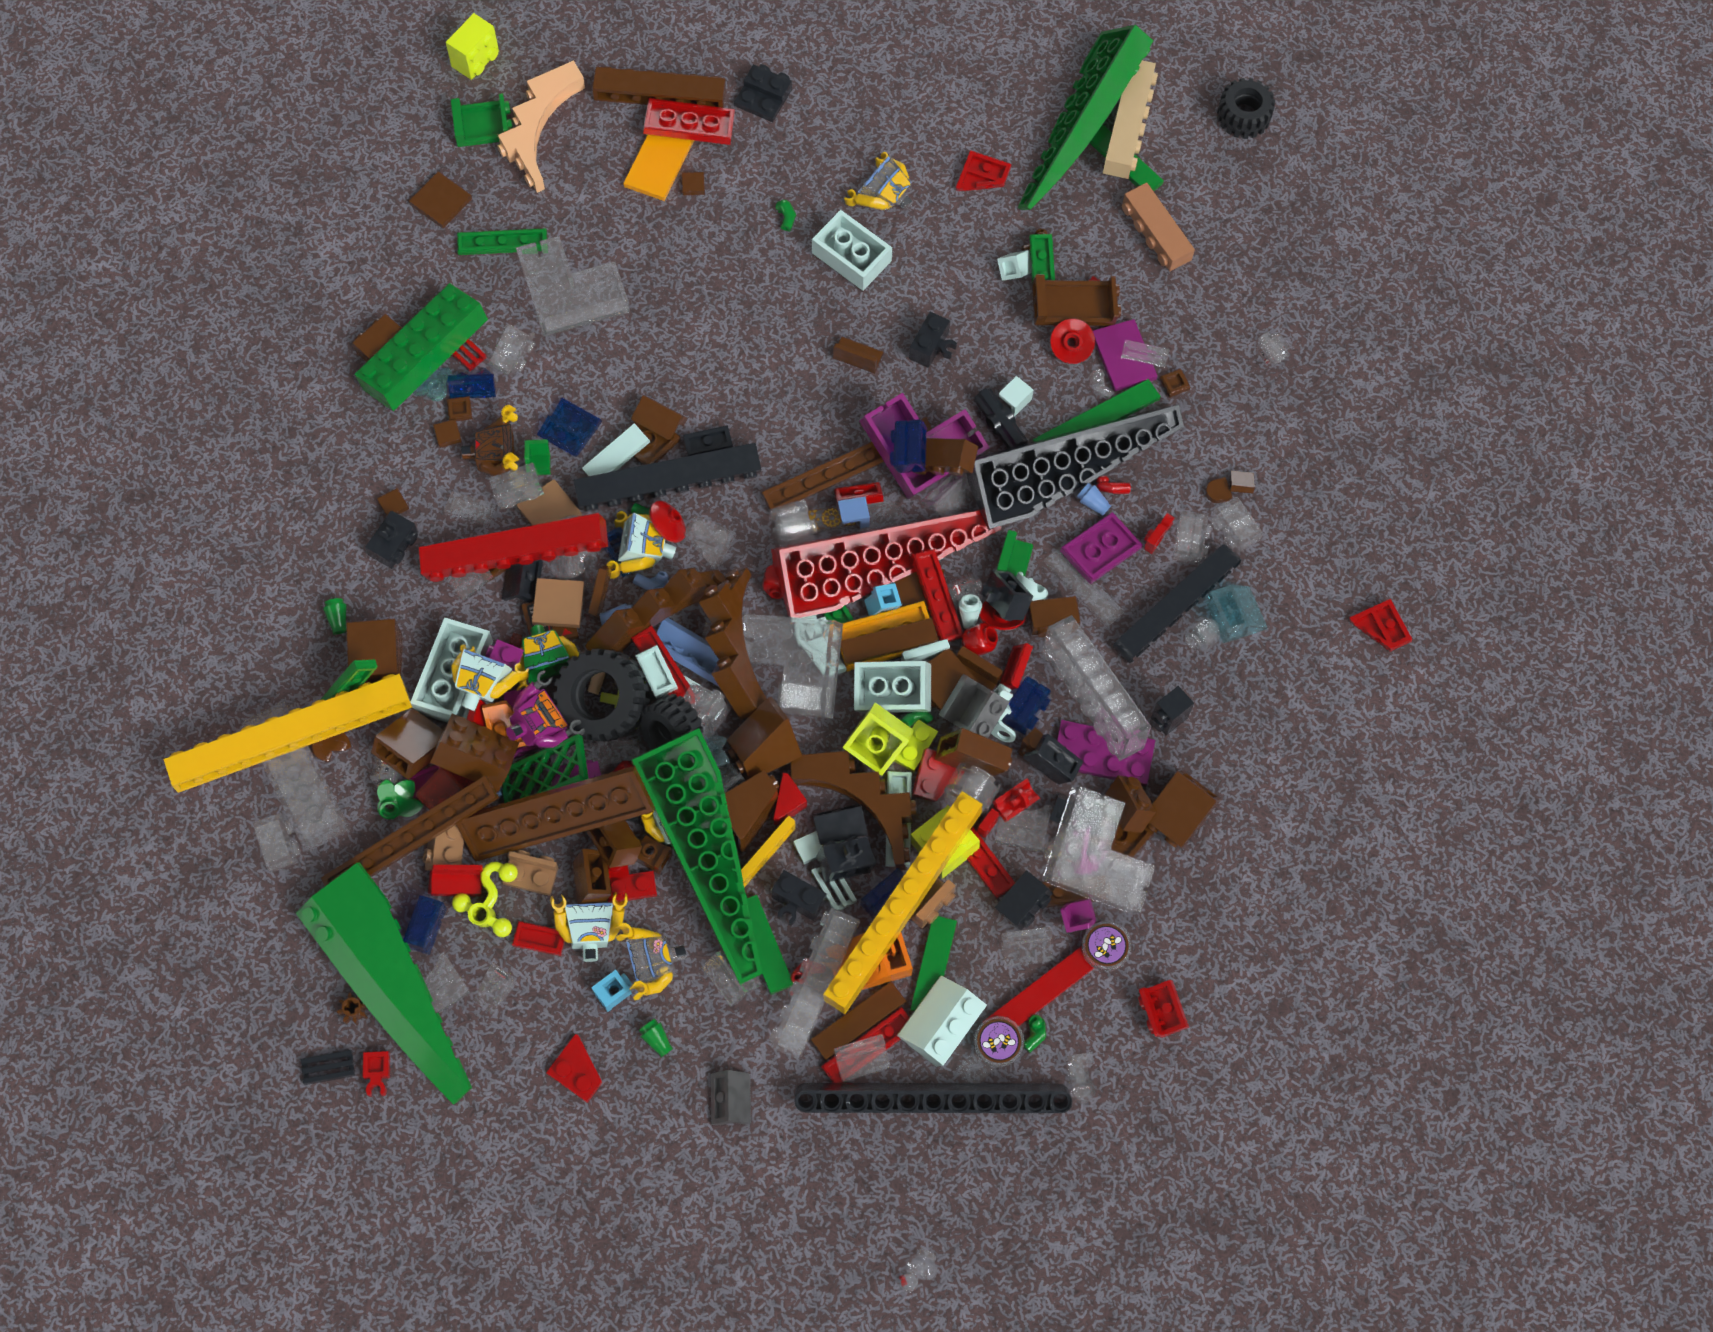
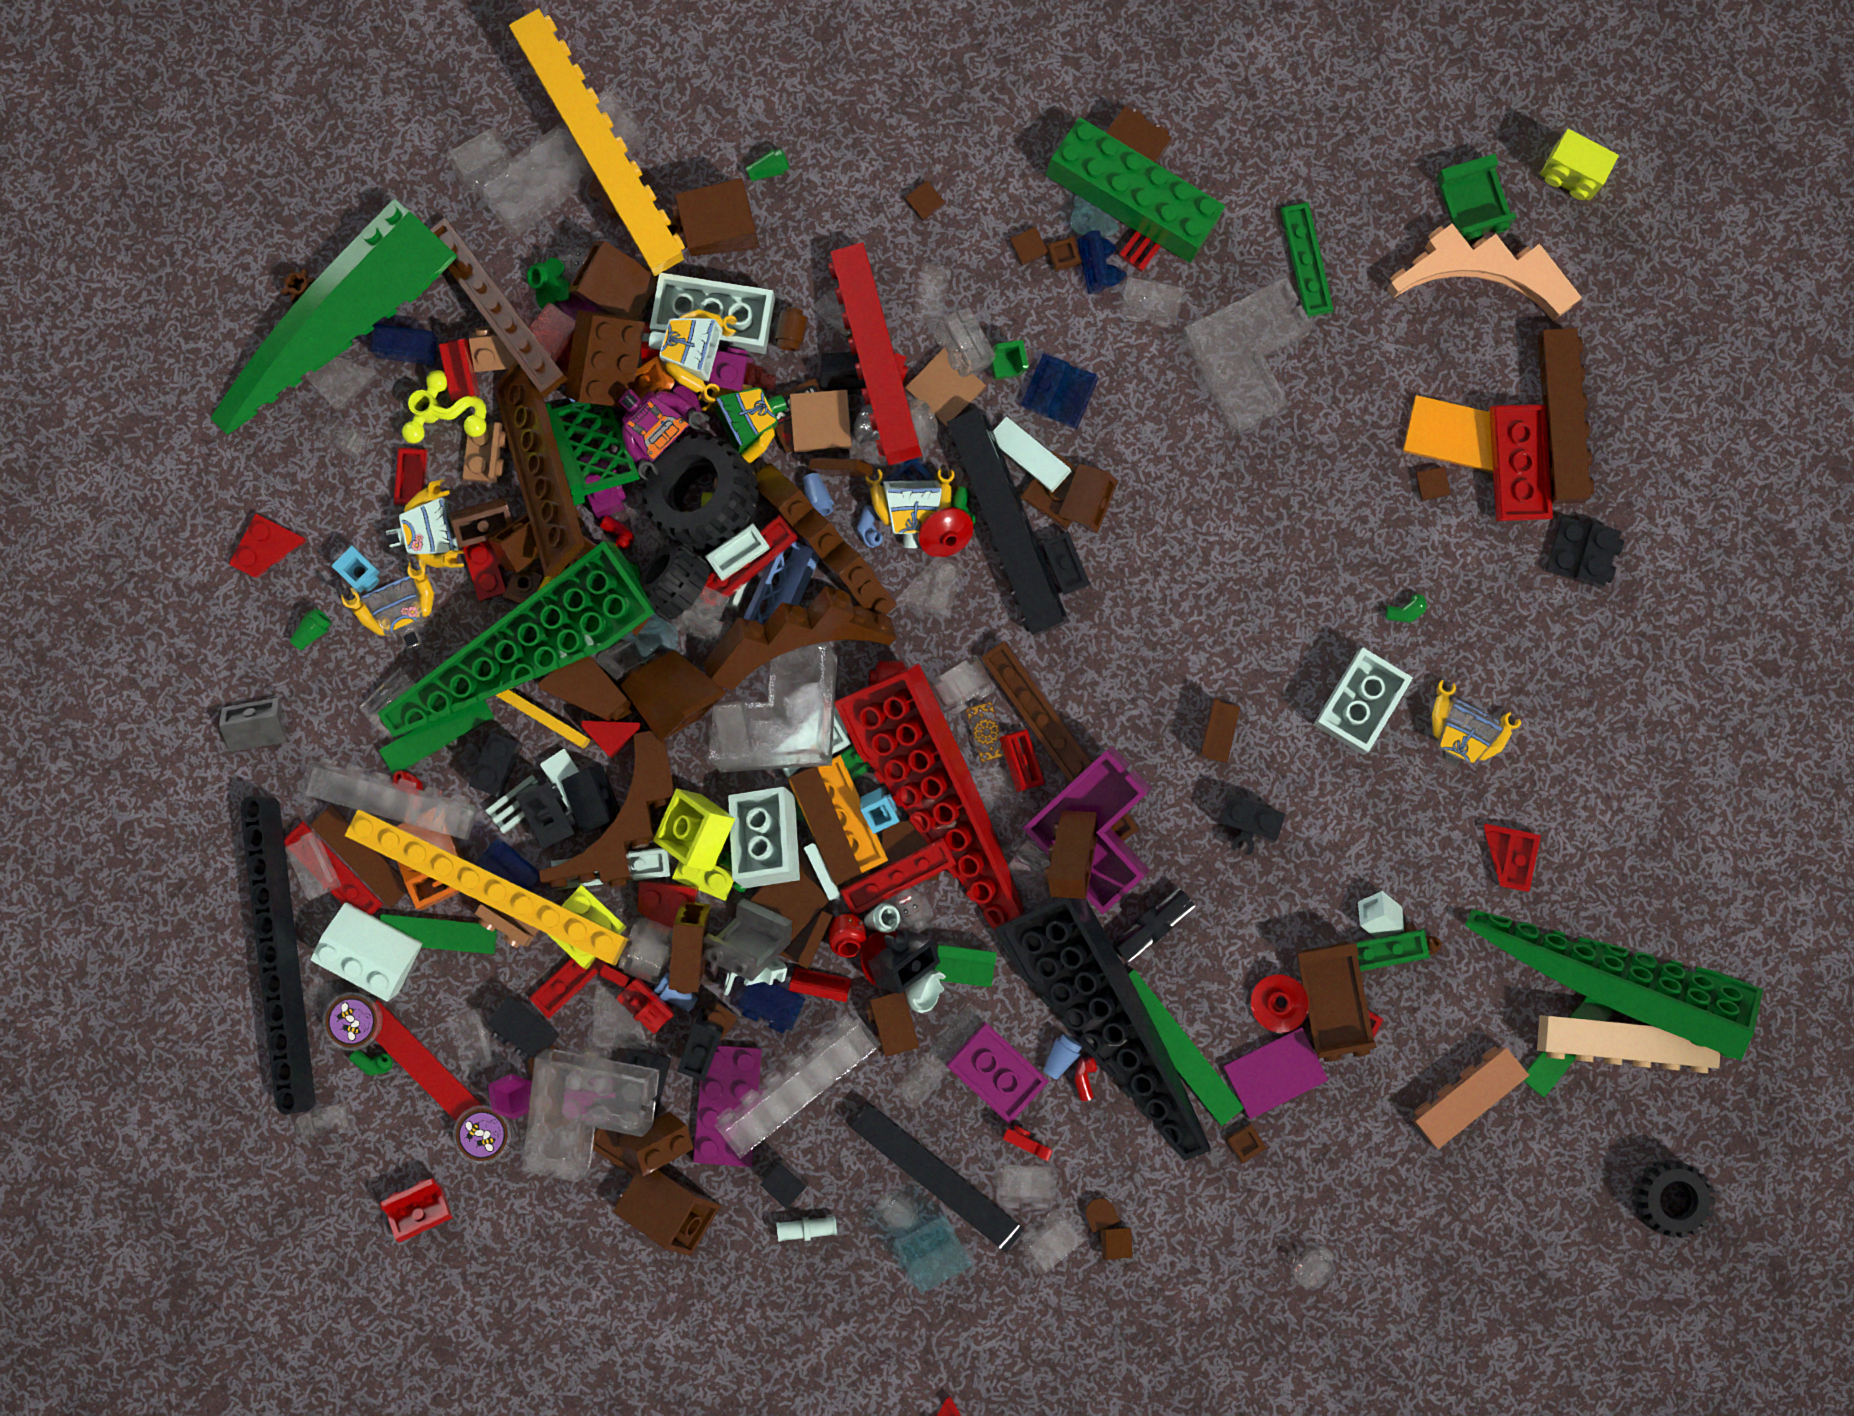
camera: 85 degrees right, 15 degrees up
(327, 1057) = (226, 251): black tile -> none
(352, 677) = (663, 195): green tile -> none
(376, 1068) = (237, 326): red plate -> none
(392, 540) = (873, 209): black brick -> none
(440, 199) = (1353, 171): reddish brown tile -> none
(477, 616) = (791, 329): none -> reddish brown brick
(494, 445) = (1013, 306): torso -> none
(854, 510) = (989, 757): medium blue panel -> none
(909, 446) = (1074, 812): clear blue brick -> none
(919, 1266) = (89, 963): clear animal -> none
(1009, 778) = (683, 1001): none -> medium blue cone
(1017, 395) = (1189, 939): light aqua panel -> none
(1098, 385) = (1226, 1043): clear arm -> none
(1145, 353) = (1274, 1099): clear tile -> none
(1208, 705) = (806, 1228): none -> light aqua pin

